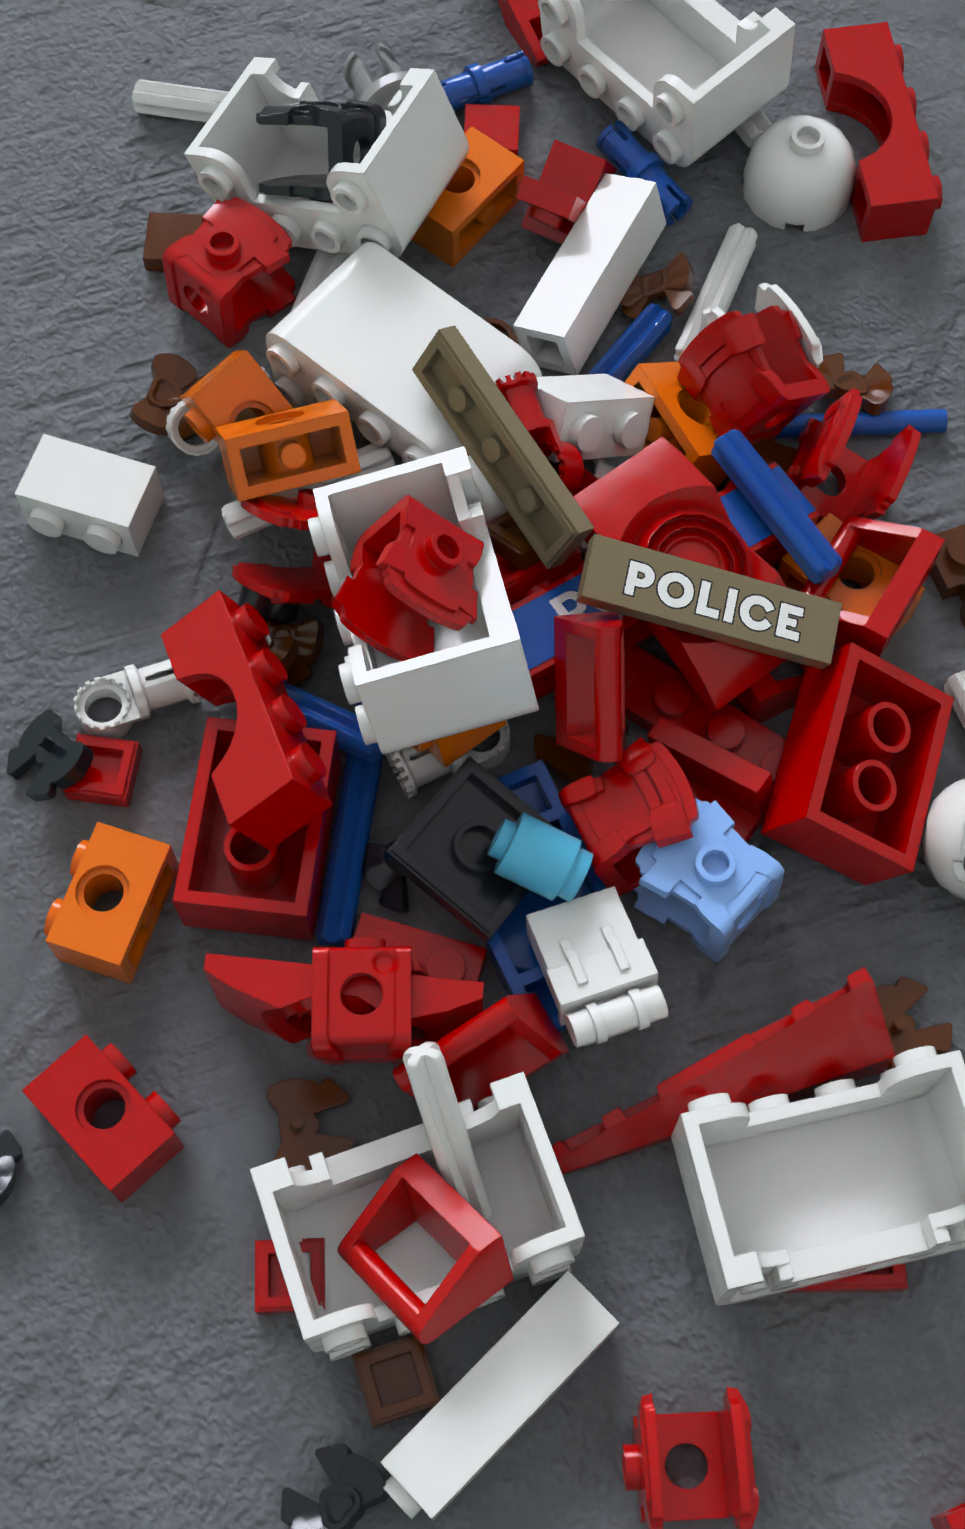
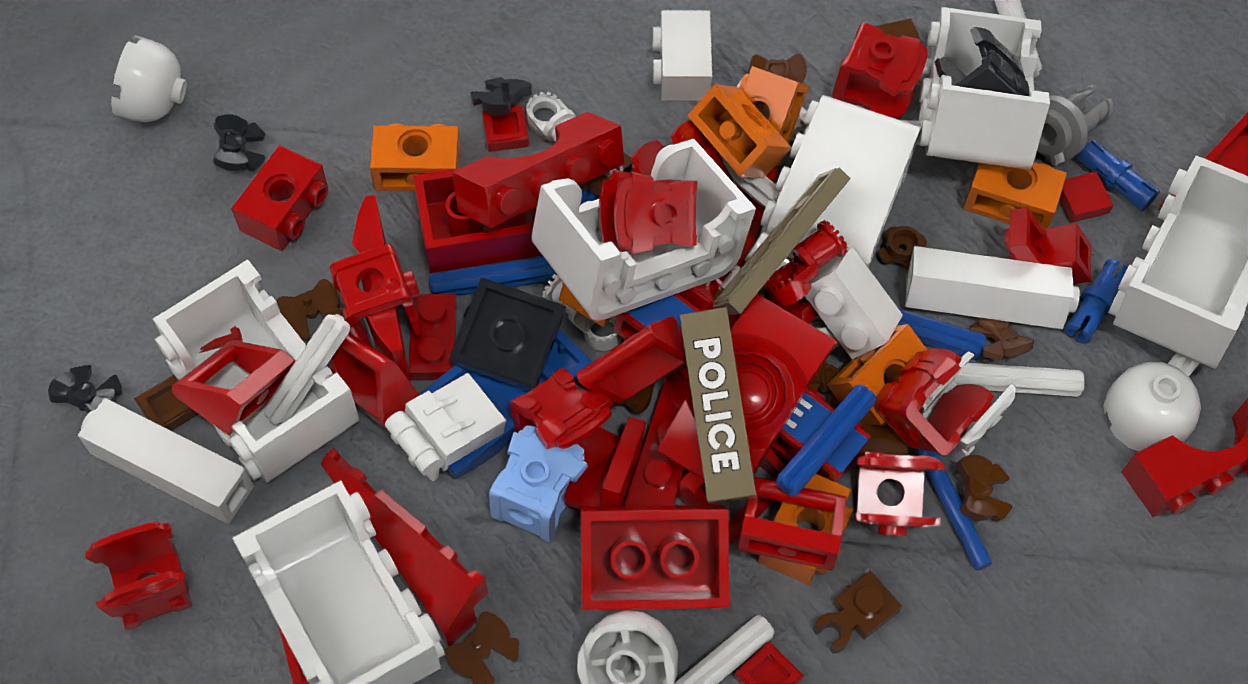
camera: 70 degrees right, 5 degrees down
(540, 857) = (504, 363): medium azure brick -> none

